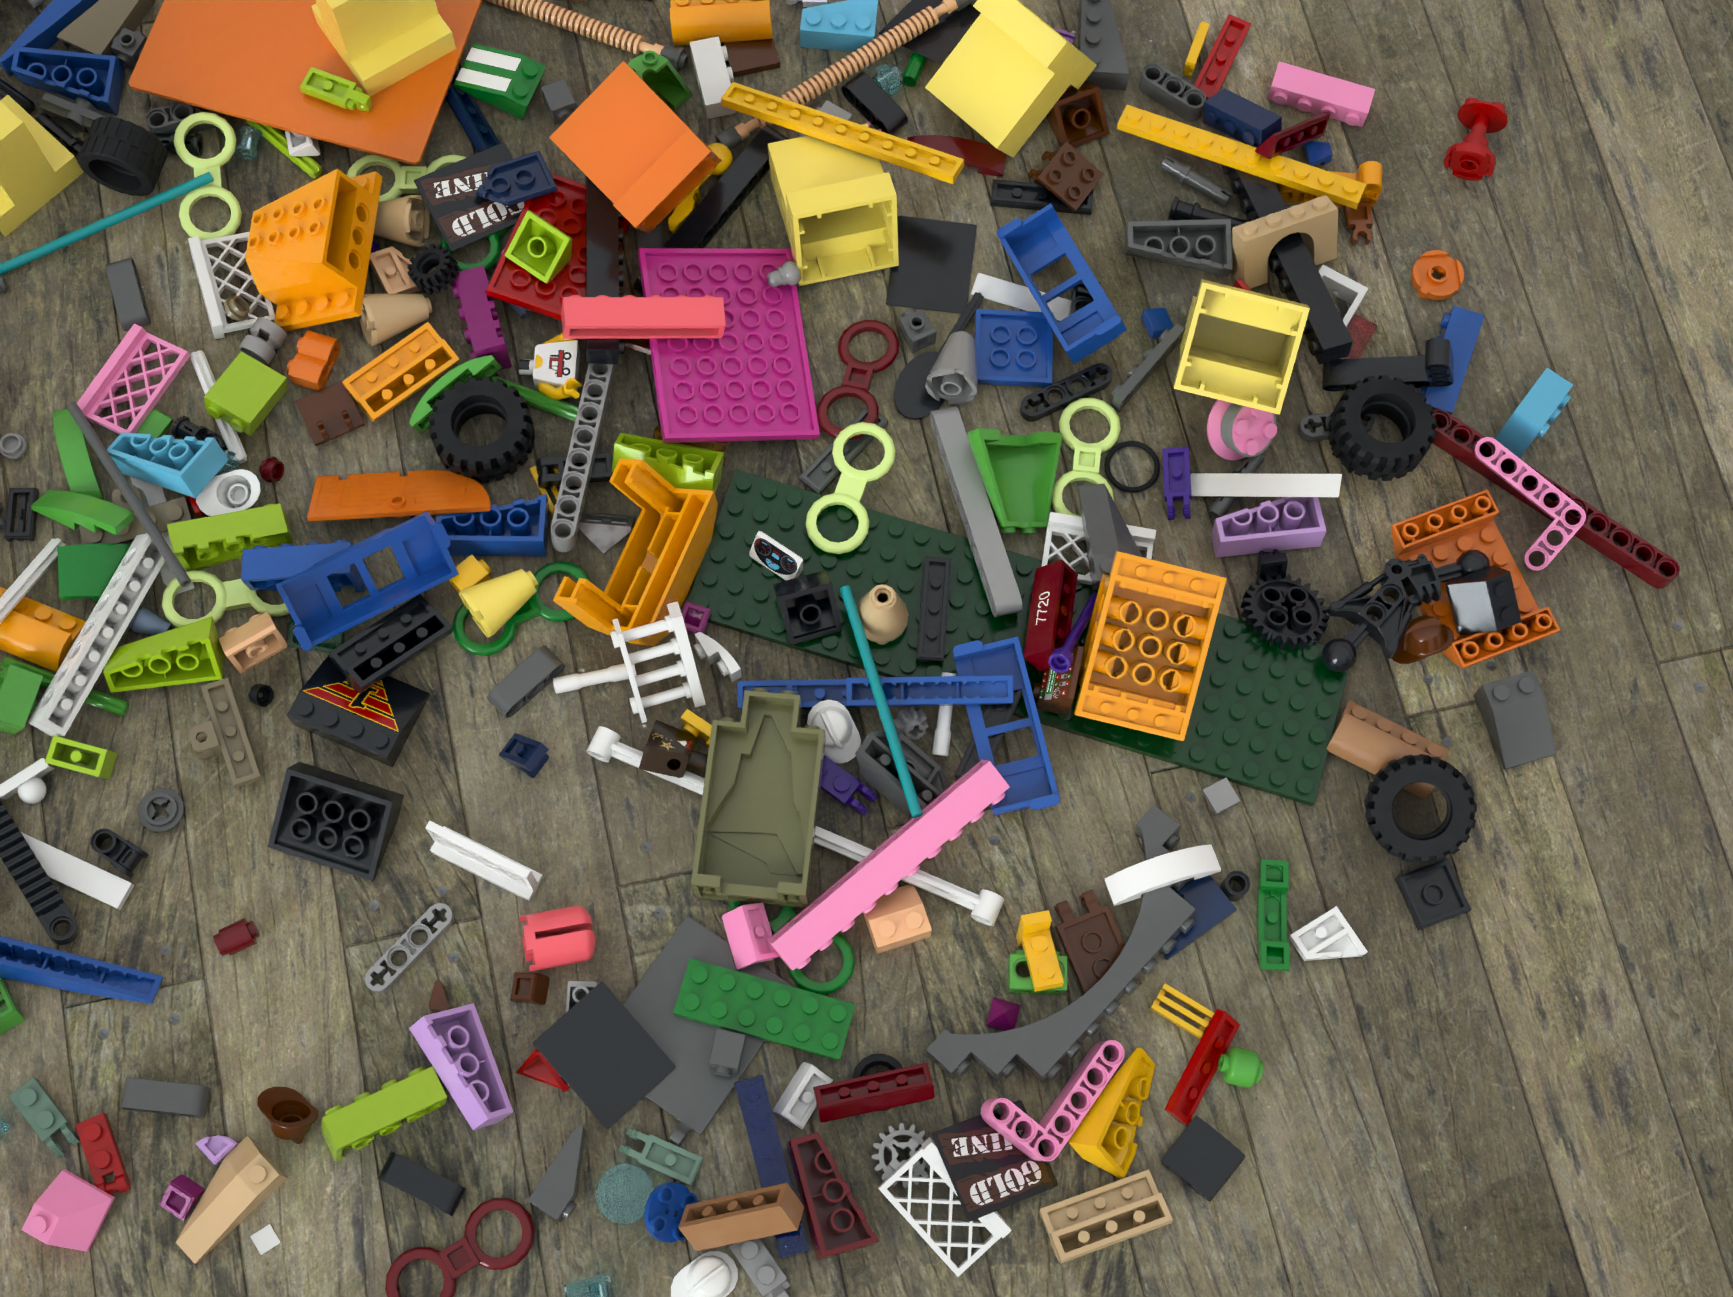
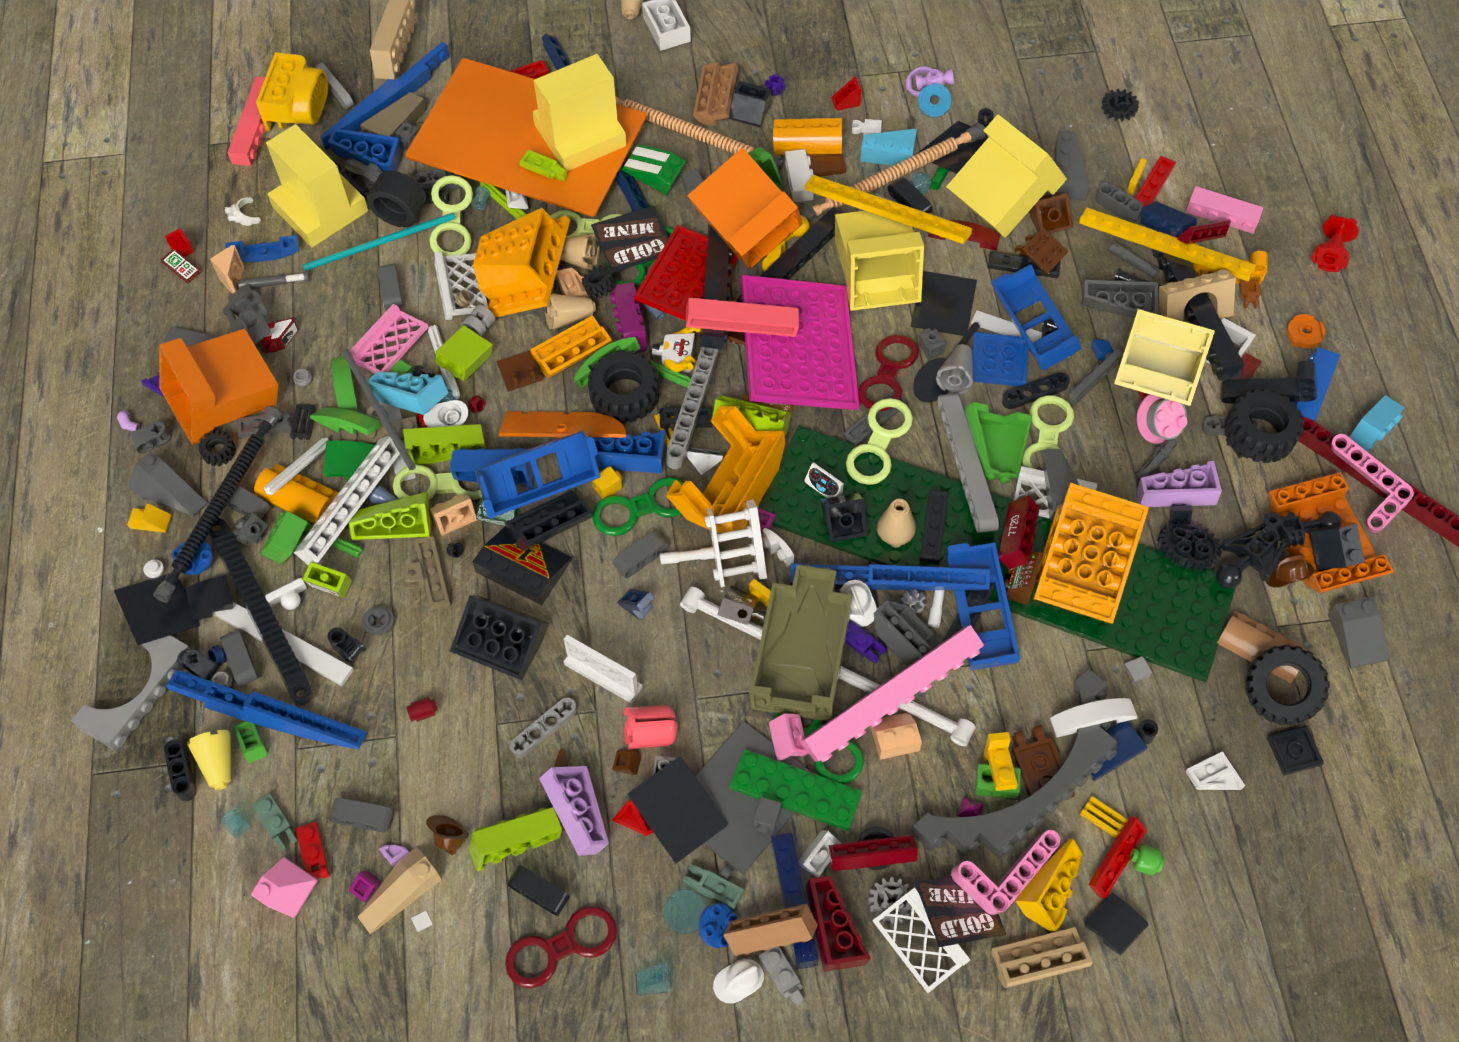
camera: 10 degrees right, 10 degrees down
(313, 361) = (512, 336): orange brick -> none
(498, 599) = (626, 496): light yellow cone -> none
(517, 180) = (661, 229): dark blue tile -> none
(540, 248) = (674, 270): lime slope -> none
(560, 1183) = (637, 900): dark grey slope -> none
(784, 275) = (843, 300): light grey piece -> none
(881, 702) = (894, 582): teal piece -> none
(1062, 657) = (1026, 556): dark purple piece -> none
(1126, 488) = (1078, 457): black tyre -> none
(1177, 479) = (1113, 452): dark purple hinge -> none
(1265, 485) = (1177, 458): white sticker -> none
(1272, 915) = (1174, 754): green slope -> none
(1317, 153) = (1221, 246): blue tile -> none

